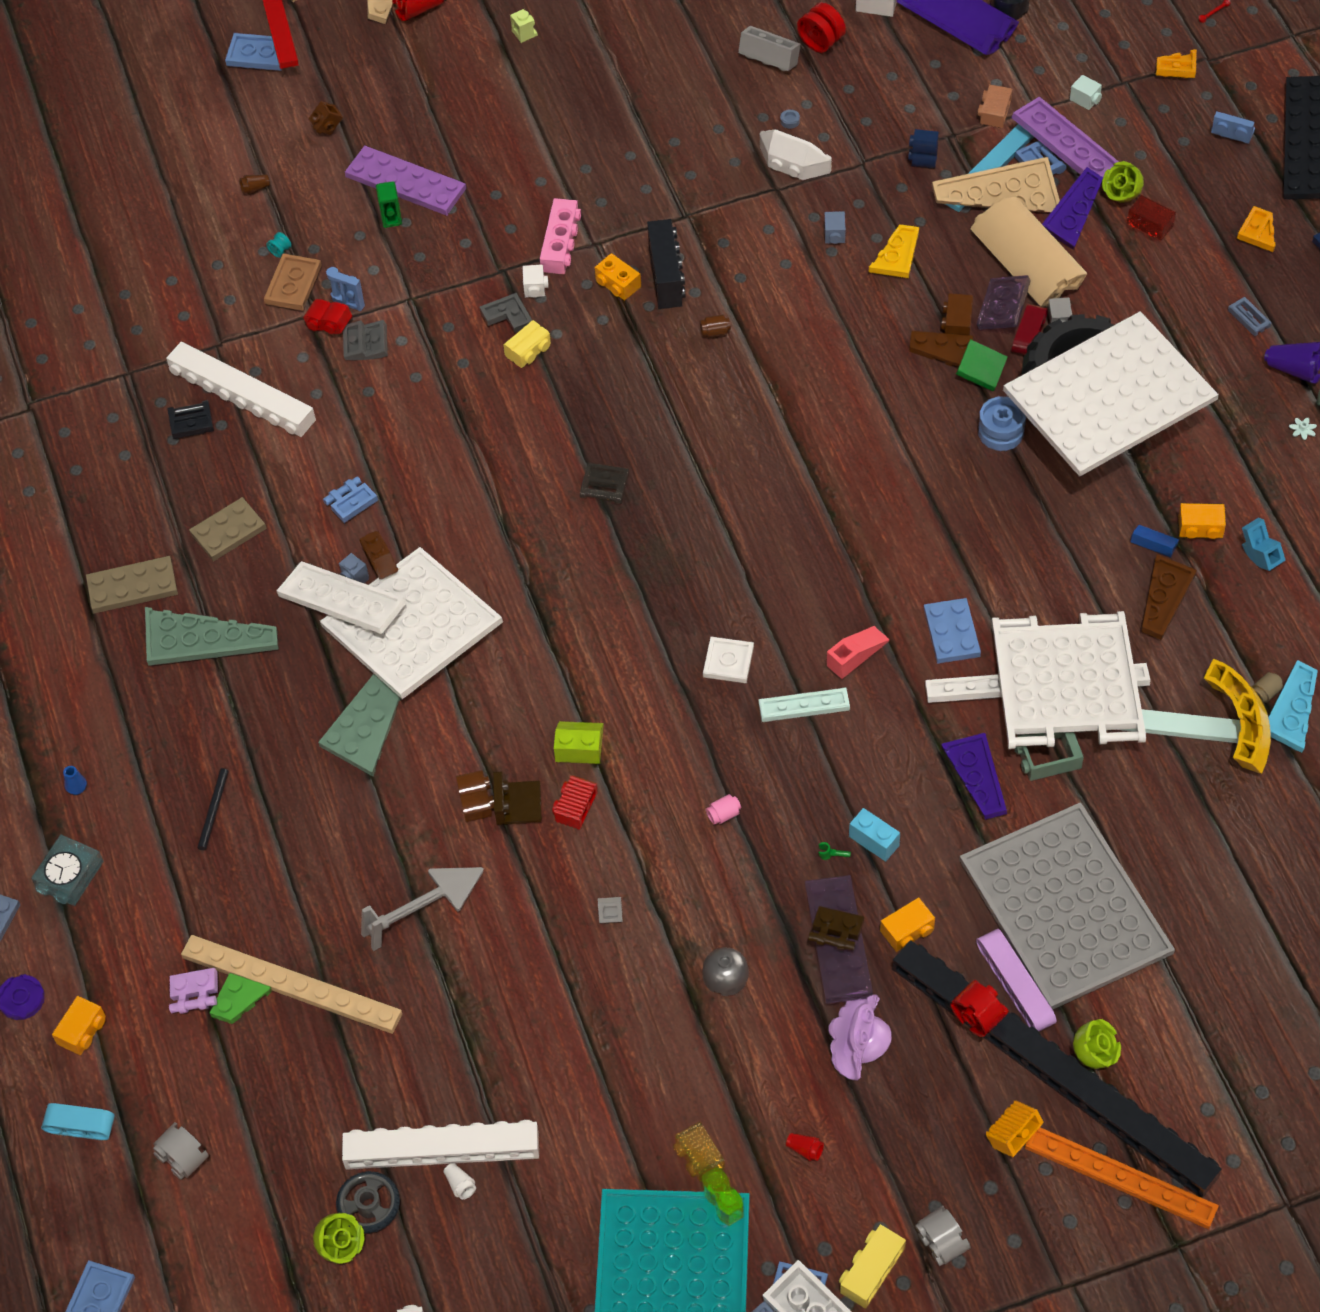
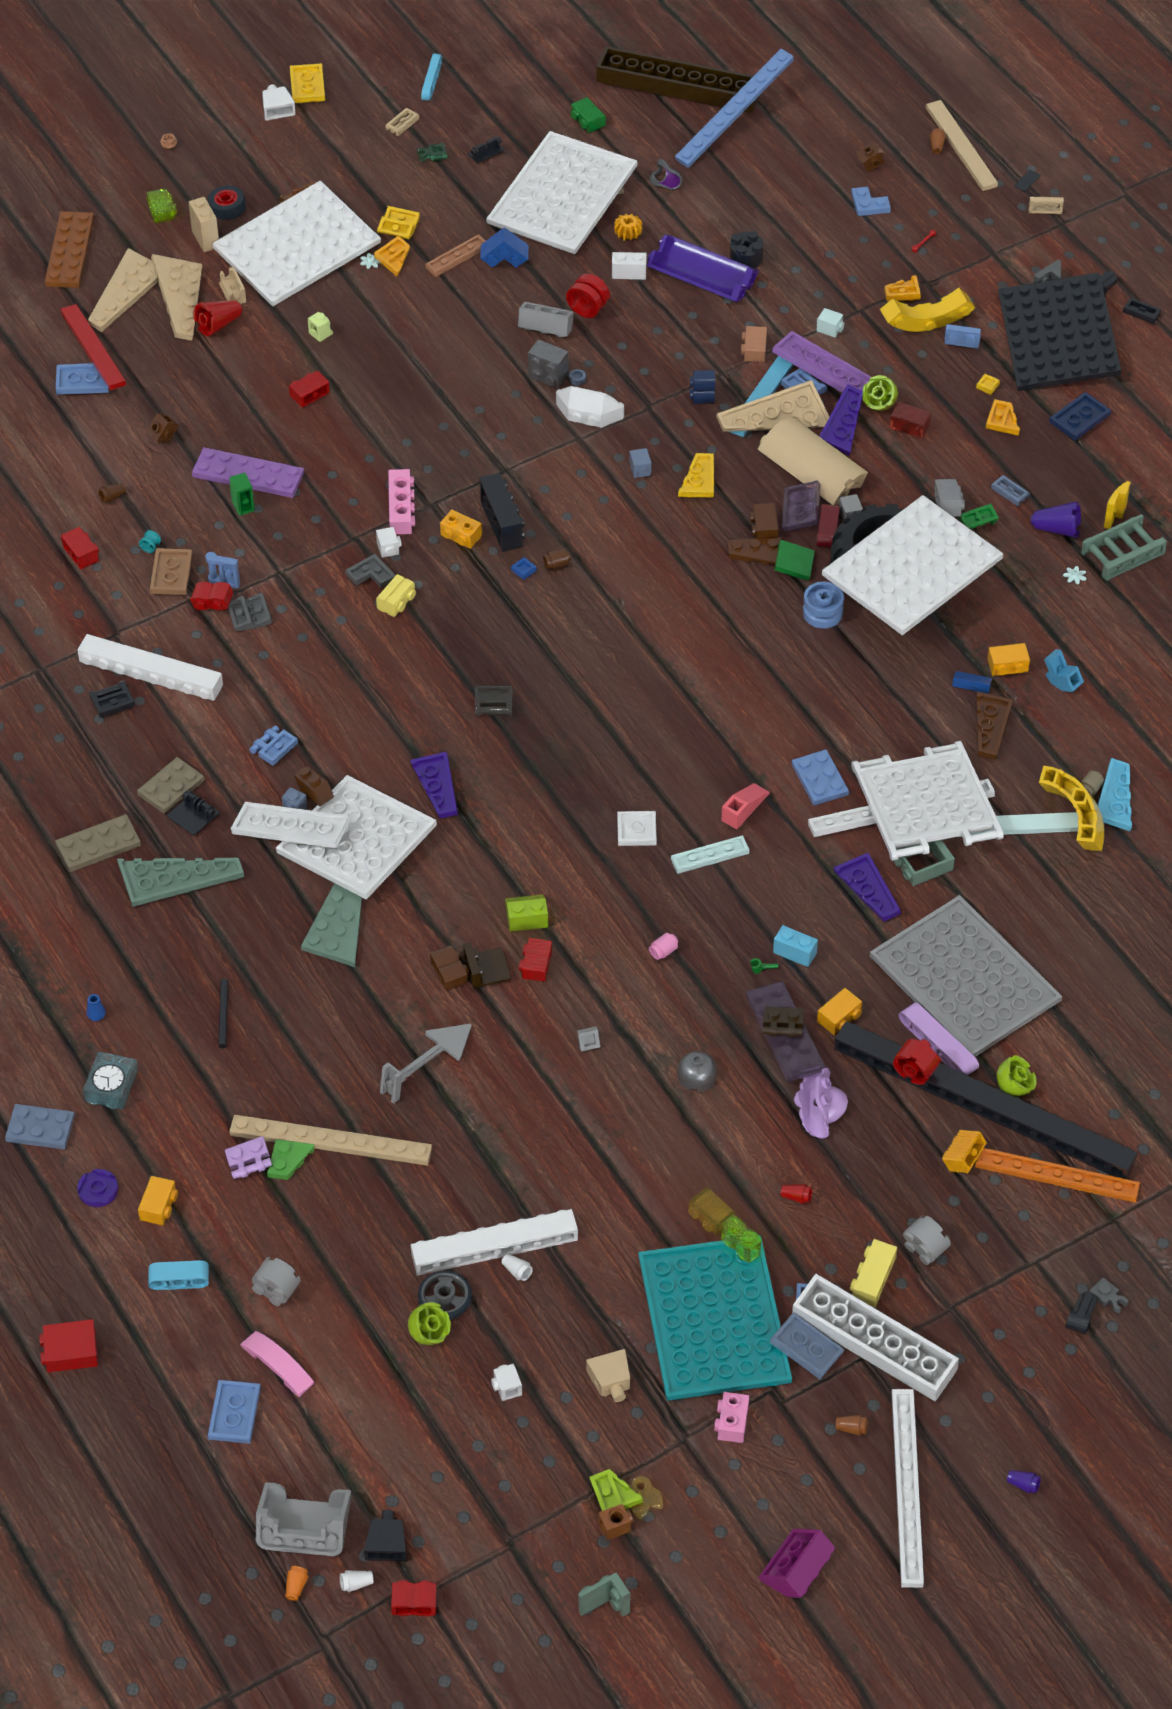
camera: 15 degrees left, 5 degrees down
(160, 1251) = (279, 1361): none -> bright pink slope
(203, 242) = (79, 547): none -> red brick
(242, 565) = (192, 813): none -> black hinge
(494, 94) = (309, 388): none -> red brick
(518, 567) = (437, 782): none -> dark purple wing
(676, 332) = (523, 568): none -> blue tile
(758, 100) = (548, 364): none -> flat silver brick
(1174, 316) = (949, 496): none -> light grey brick
(1199, 98) = (928, 315): none -> yellow brick
(1202, 344) = (979, 516): none -> green hinge
(1251, 186) = (988, 384): none -> yellow tile

